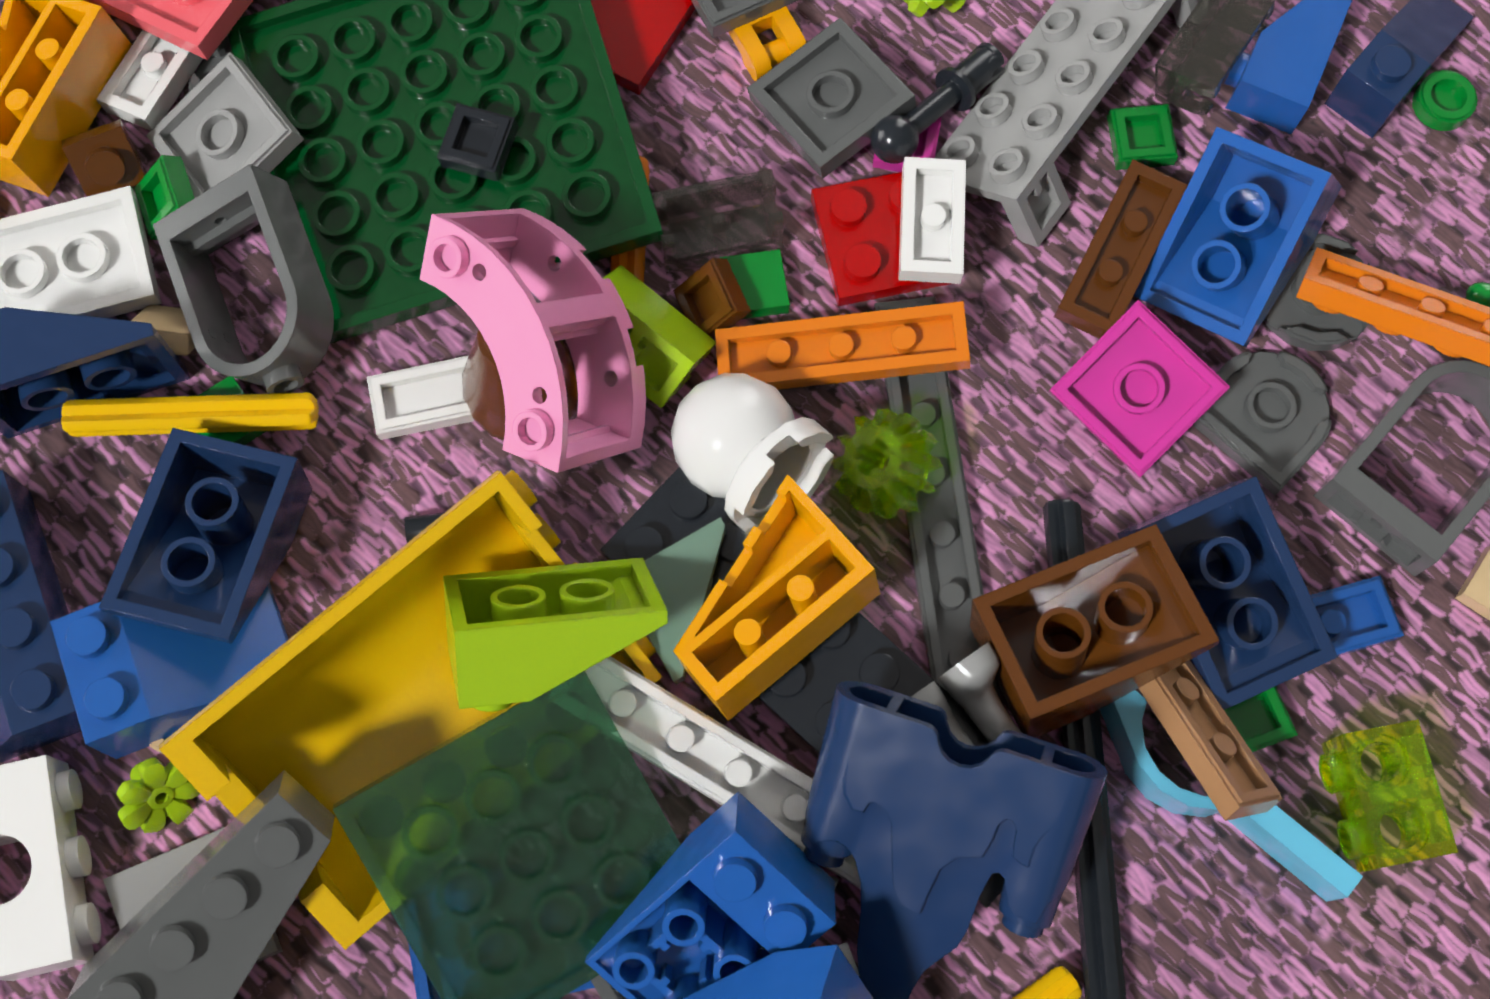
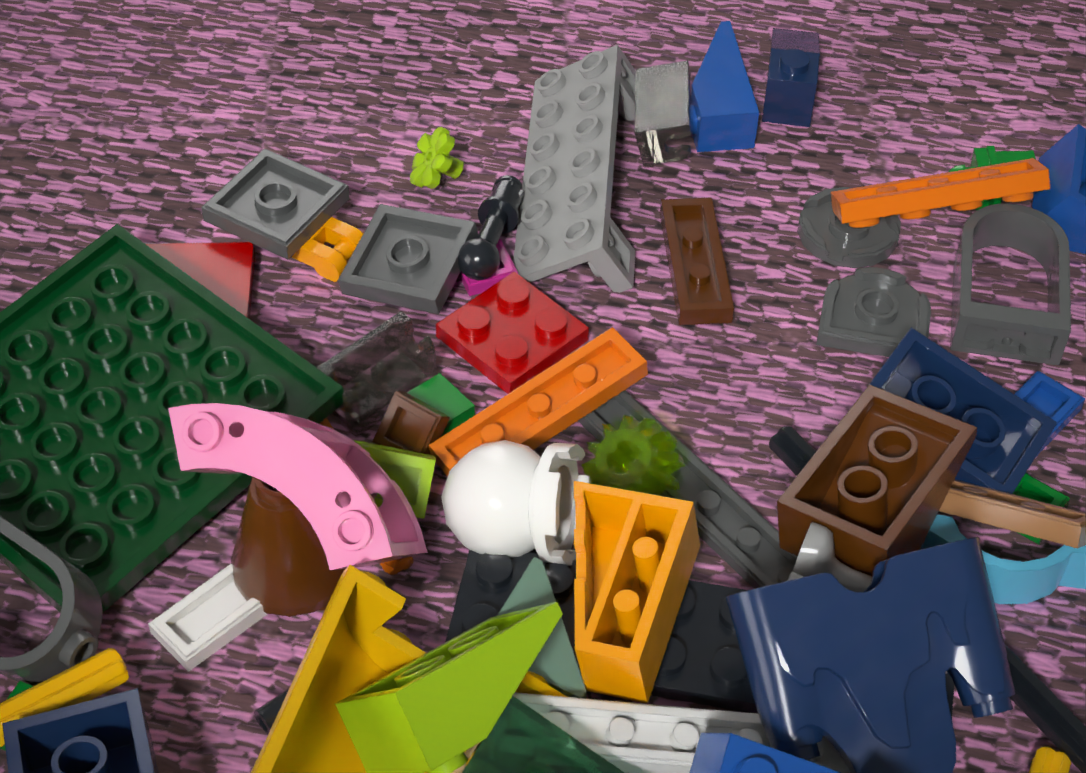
camera: 30 degrees left, 25 degrees down
(477, 142) = (143, 397): black tile -> none
(932, 220) = (548, 291): white plate -> none
(1139, 389) = (778, 334): dark pink tile -> none
(1142, 135) = (650, 186): green tile -> none
(1237, 236) = (771, 206): blue slope -> none
(1444, 100) = (839, 84): green tile -> none

